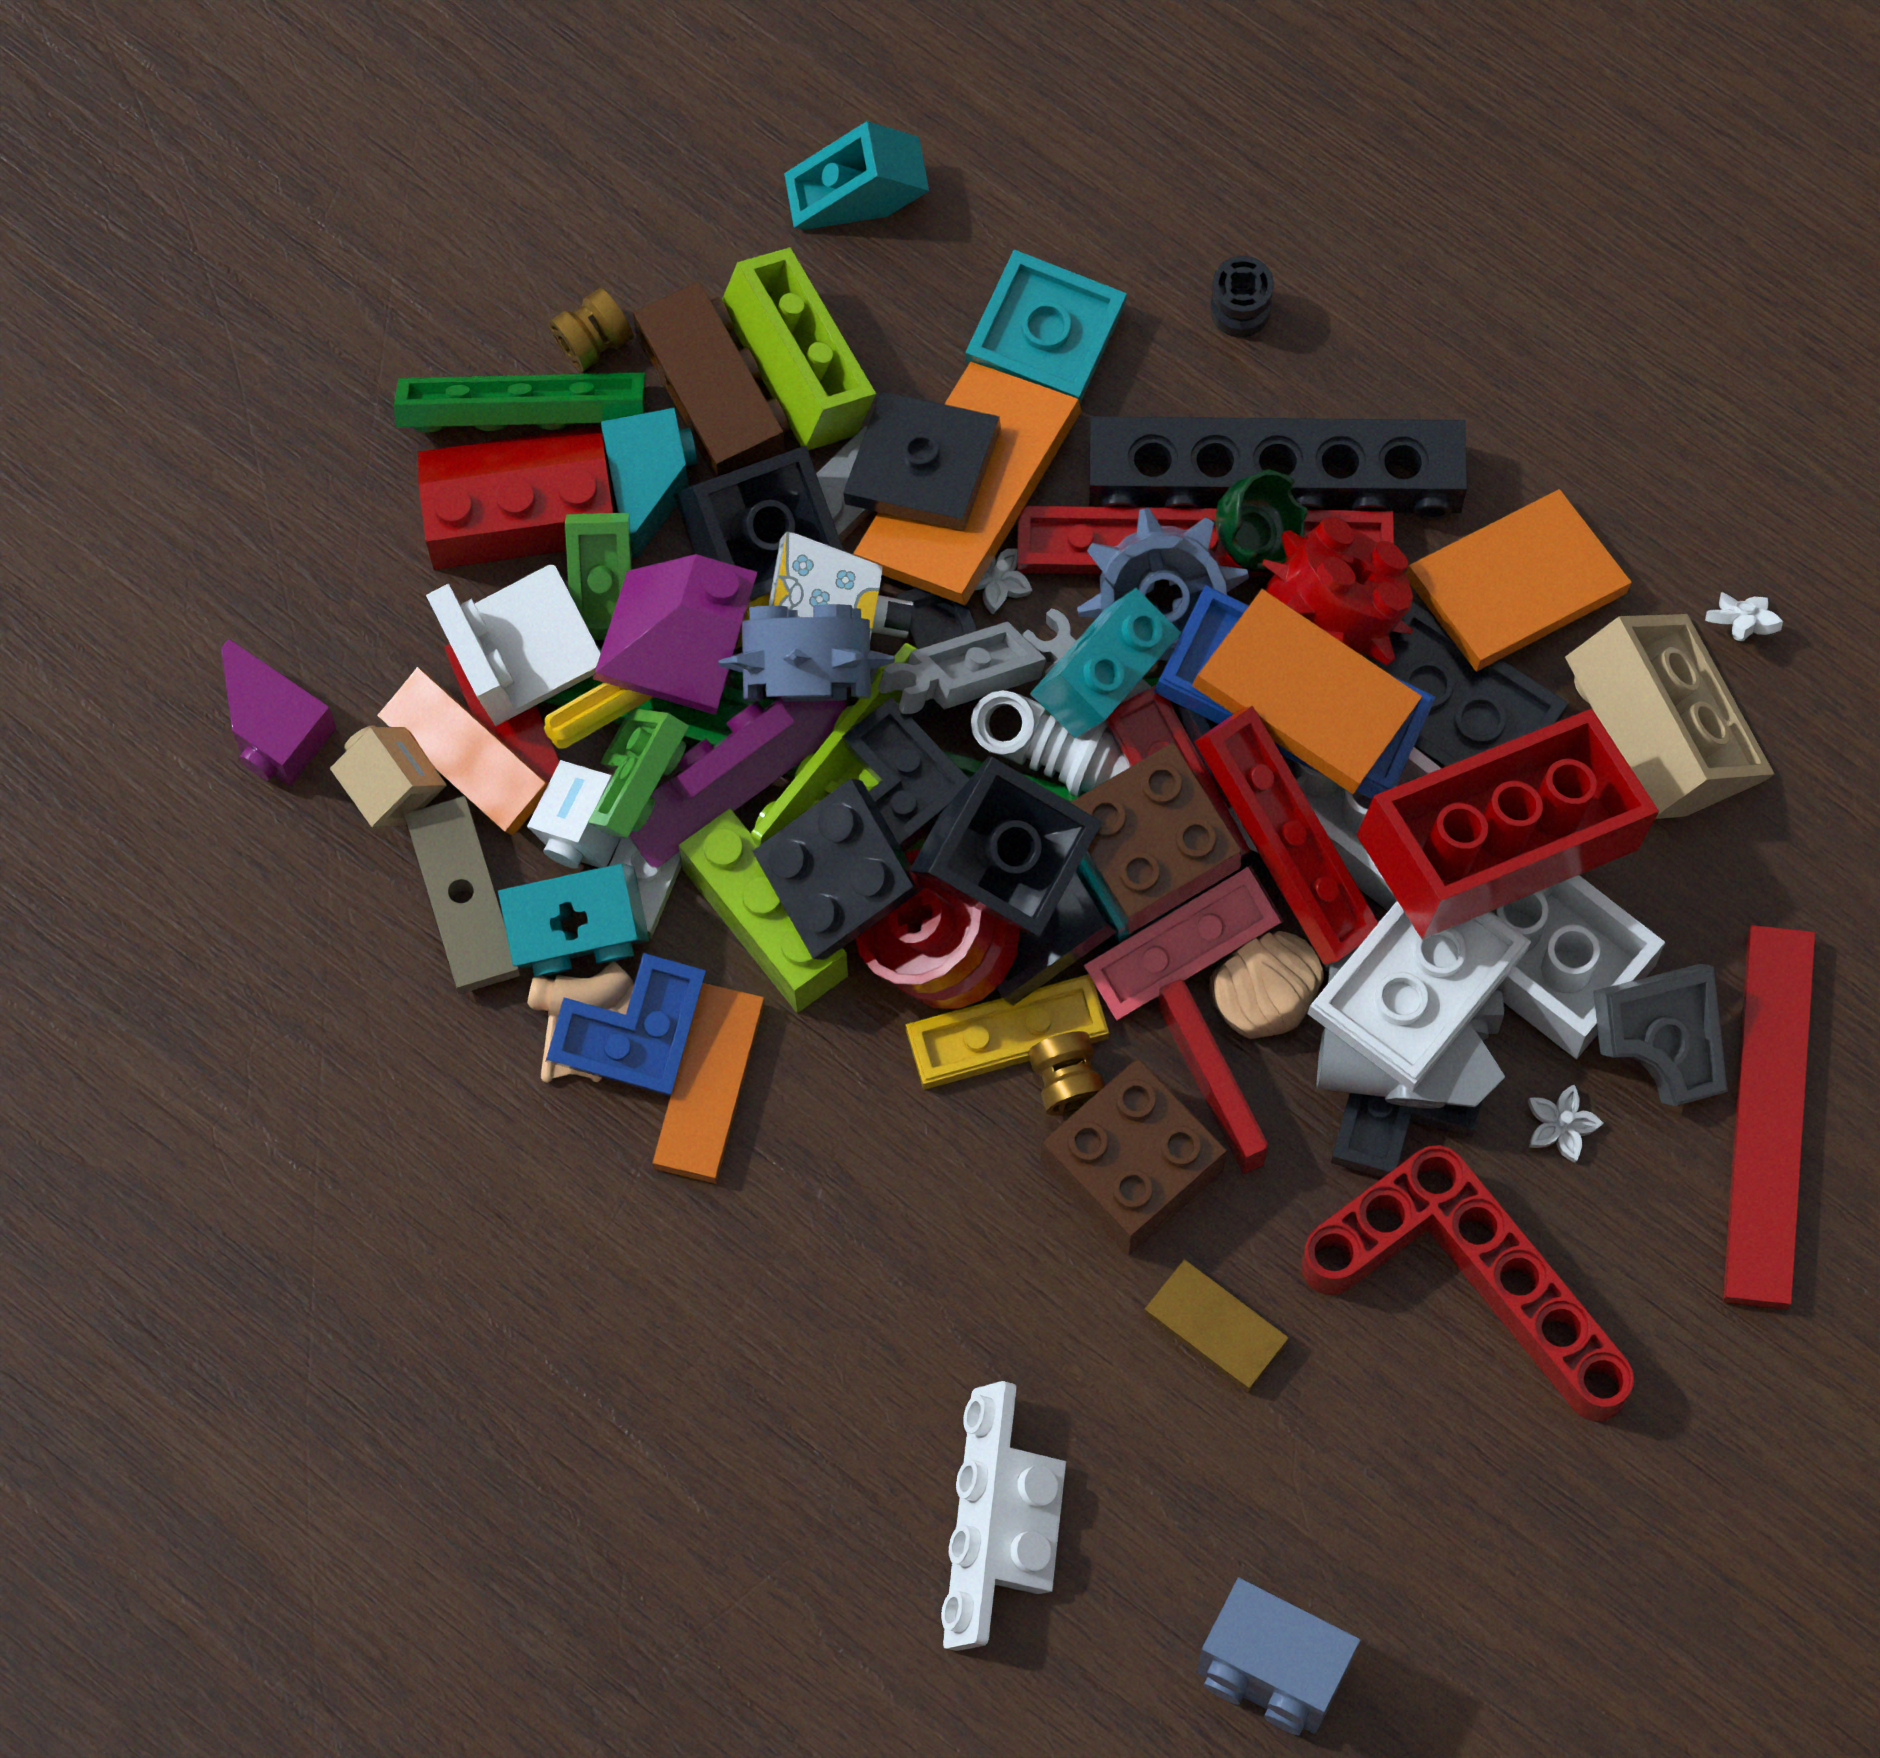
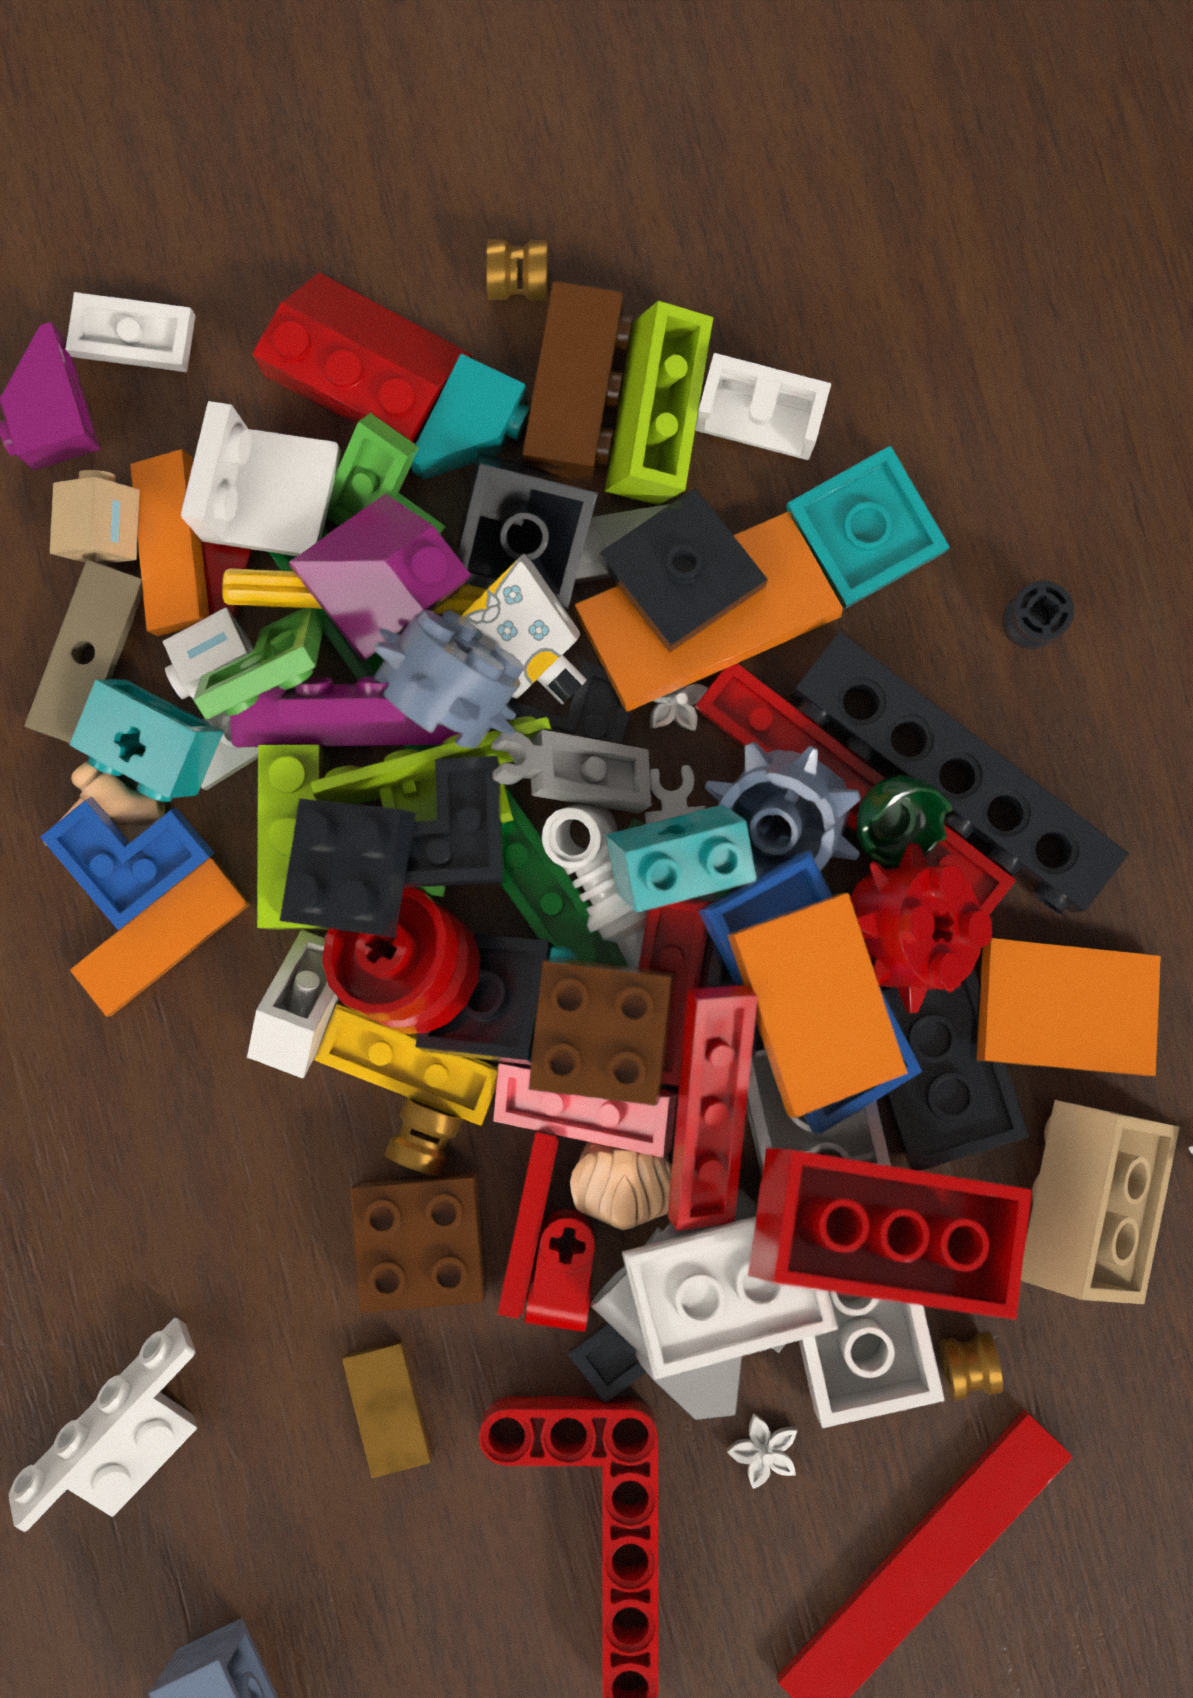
camera: 40 degrees right, 15 degrees up
(295, 608) = (130, 332): none -> white plate
(501, 401) = (421, 287): green plate -> none
(857, 178) = (816, 295): teal slope -> none
(877, 1044) = (294, 1010): none -> white slope
(887, 289) = (762, 406): none -> white window
(1007, 846) = (468, 966): black slope -> none
(1280, 1101) = (562, 1280): none -> red piece
(1669, 1028) = (894, 1460): dark grey tile -> none
(1675, 917) = (971, 1366): none -> pearl gold wheel

